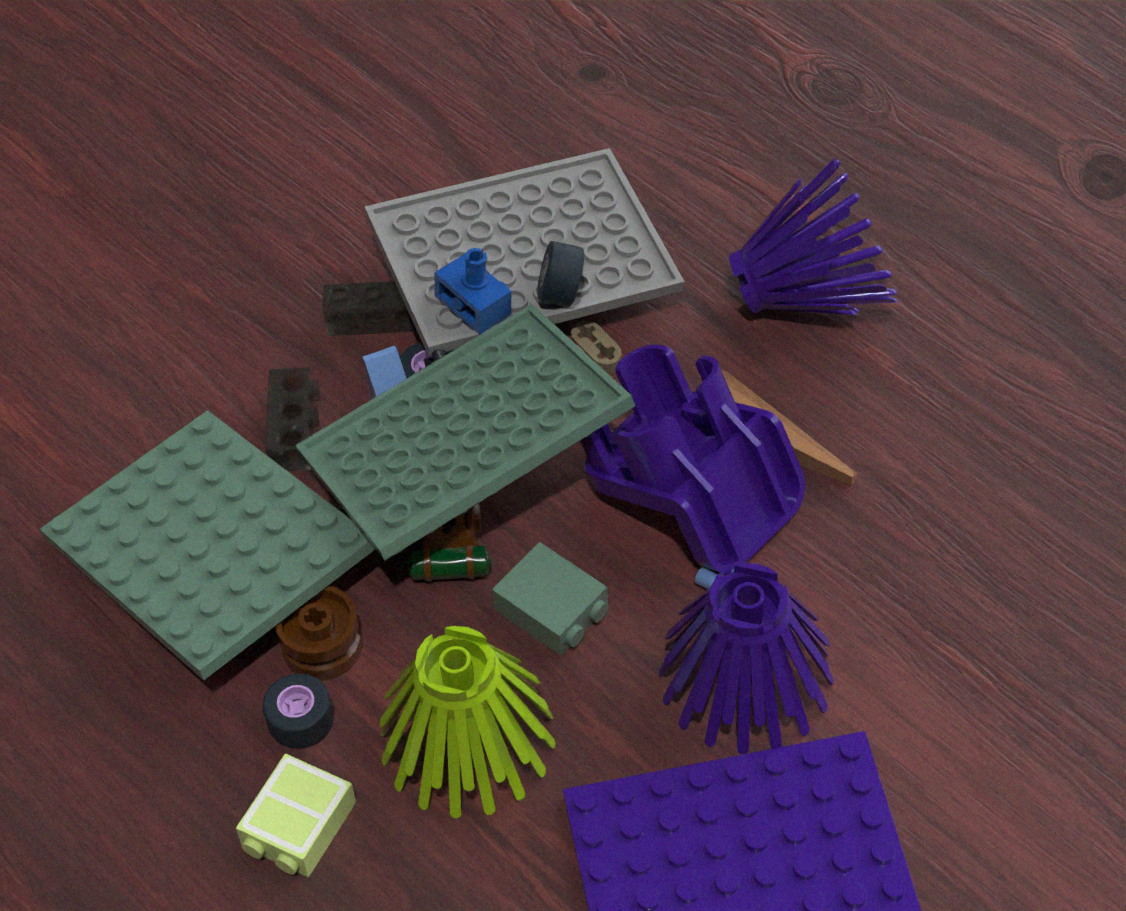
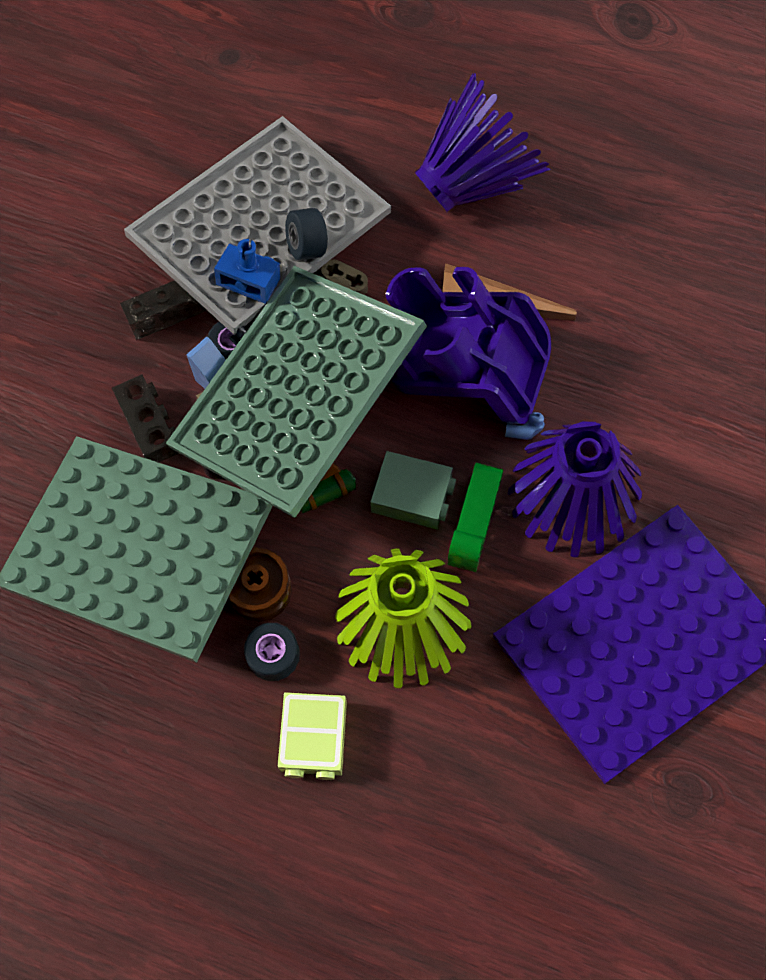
camera: 25 degrees left, 15 degrees up
(586, 677) = (475, 517): none -> green beam

